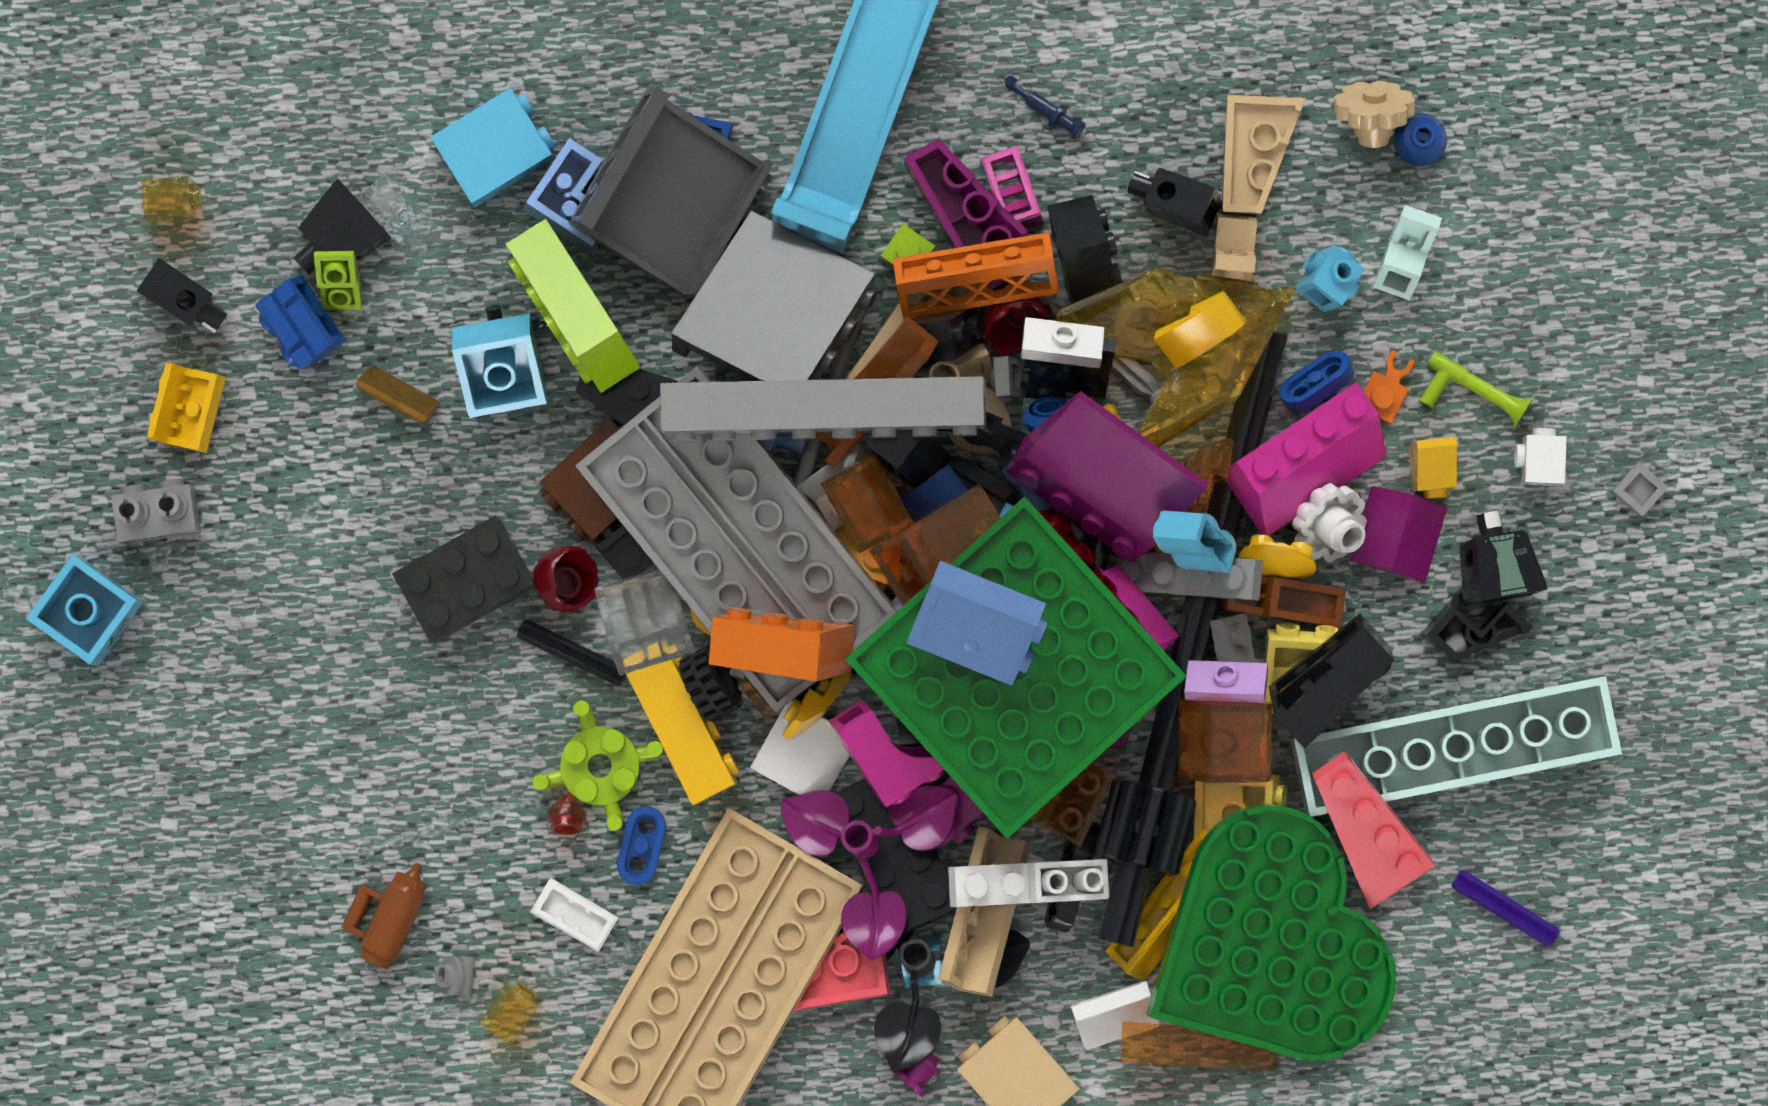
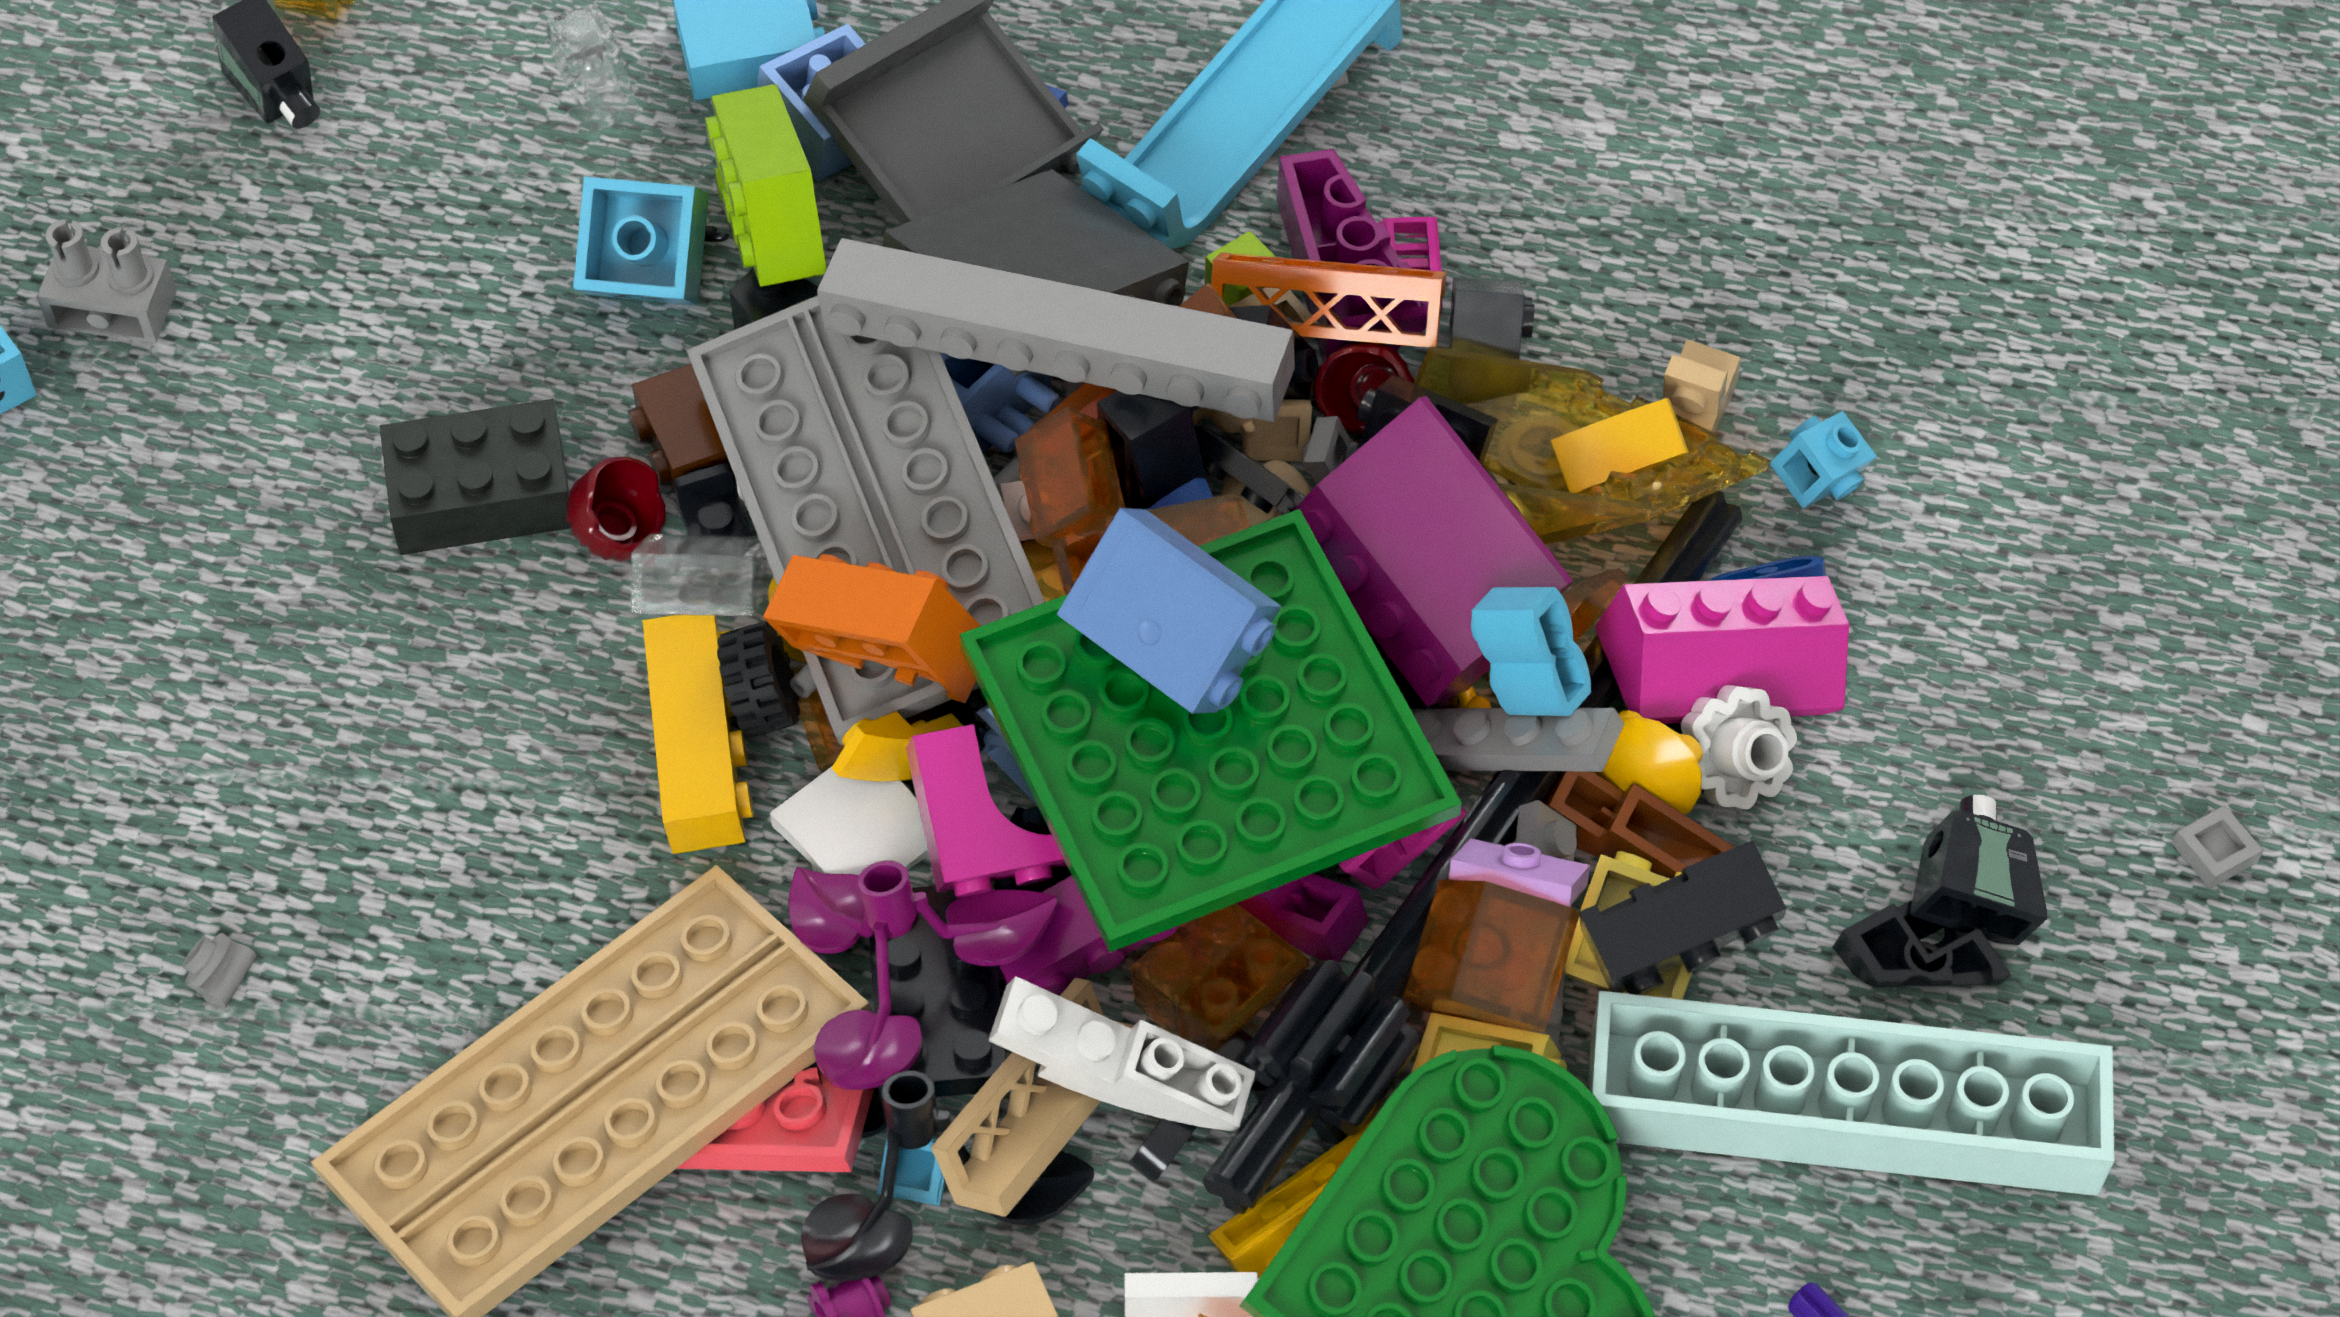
camera: 15 degrees right, 30 degrees down
(186, 407) = (208, 191): yellow bracket -> none
(299, 323) = (405, 142): blue brick -> none
(338, 280) = (481, 99): lime slope -> none
(339, 225) = (508, 66): black torso -> none
(391, 919) = (156, 858): dark orange piece -> none
(397, 394) = (490, 260): pearl gold slope -> none
(511, 1012) = (270, 1033): clear yellow brick -> none
(566, 815) = (477, 808): clear red plate -> none
(570, 652) = (583, 614): black axle -> none
(574, 914) = (428, 938): white plate -> none
(575, 761) = (562, 729): lime plate -> none
(641, 845) = (563, 877): blue plate -> none
(1047, 109) = (1498, 196): dark blue piece -> none
(1062, 342) = (1408, 380): white plate -> none
(1191, 207) = (1638, 314): black torso -> none
(1254, 147) = (1766, 295): tan wing -> none
(1372, 835) = (1683, 1170): coral wing -> none
(1374, 110) = (1939, 293): tan plant -> none
(1385, 391) = (1872, 625): orange plate -> none
(1400, 533) = (1839, 803): magenta slope -> none
(1406, 252) = (1946, 458): light aqua brick -> none
(1408, 136) = (1996, 351): blue cone -> none
(1434, 466) = (1914, 712): yellow slope -> none
(1450, 370) = (1960, 623): lime piece -> none
(1541, 458) = (2077, 764): white brick -> none

